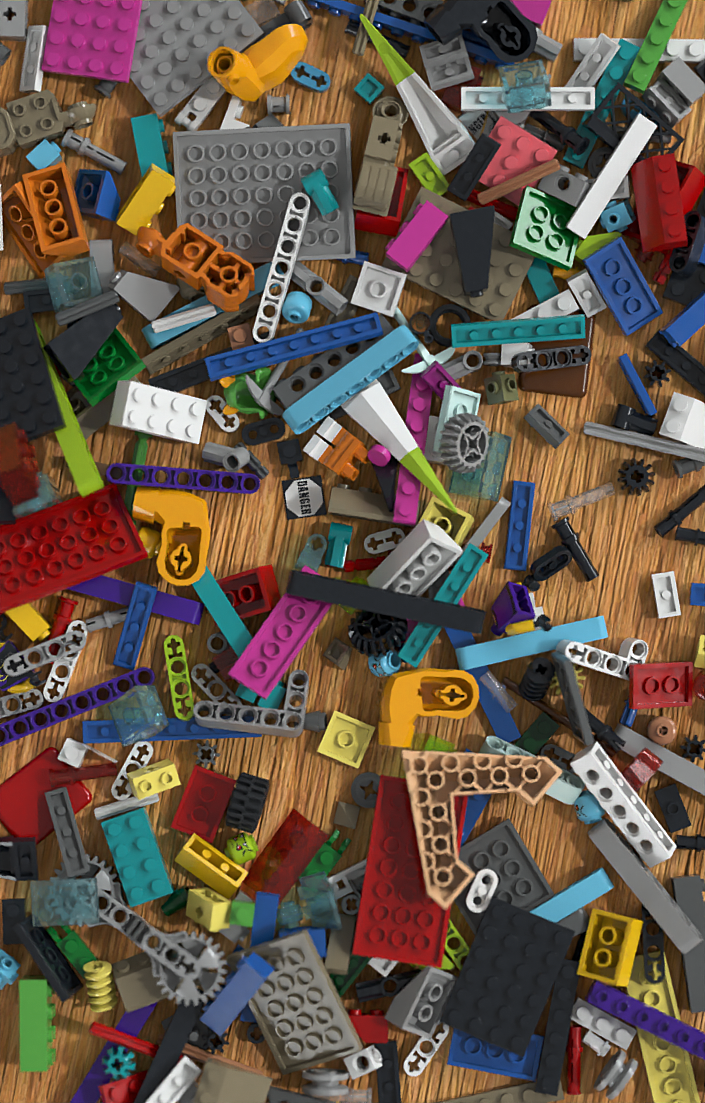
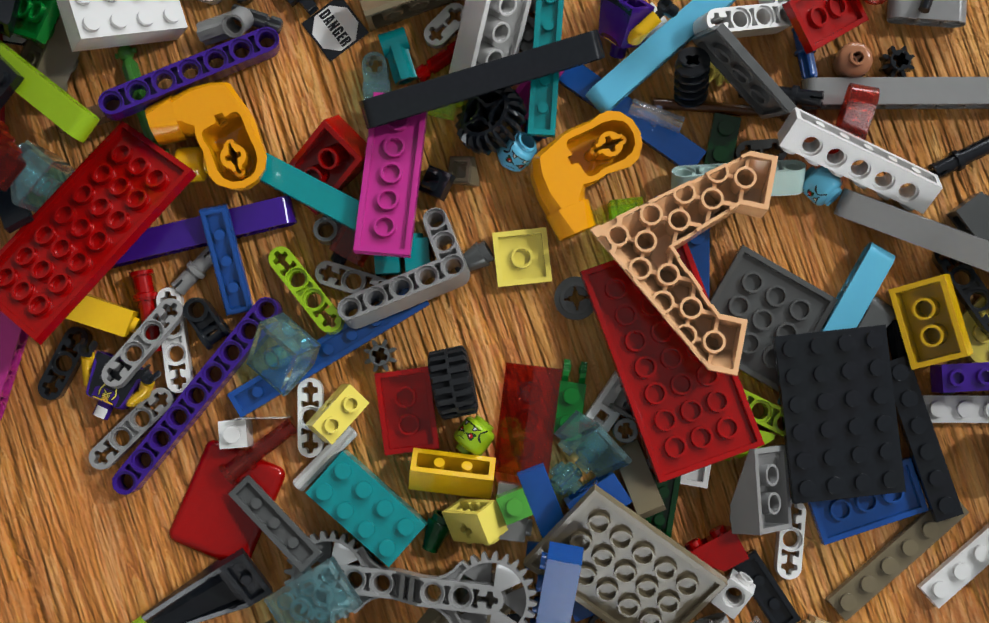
camera: 30 degrees left, 0 degrees up
(96, 663) = (207, 323): none -> black piece
(315, 652) = (436, 183): none -> black tile
(346, 815) = (567, 338): dark tan slope -> none
(375, 988) = (701, 506): black piece -> none
(482, 890) = (761, 337): white plate -> none
(574, 1060) = (970, 491): red pin -> none
(596, 1043) = (974, 434): white pin -> none
(672, 808) = (908, 139): black plate -> none

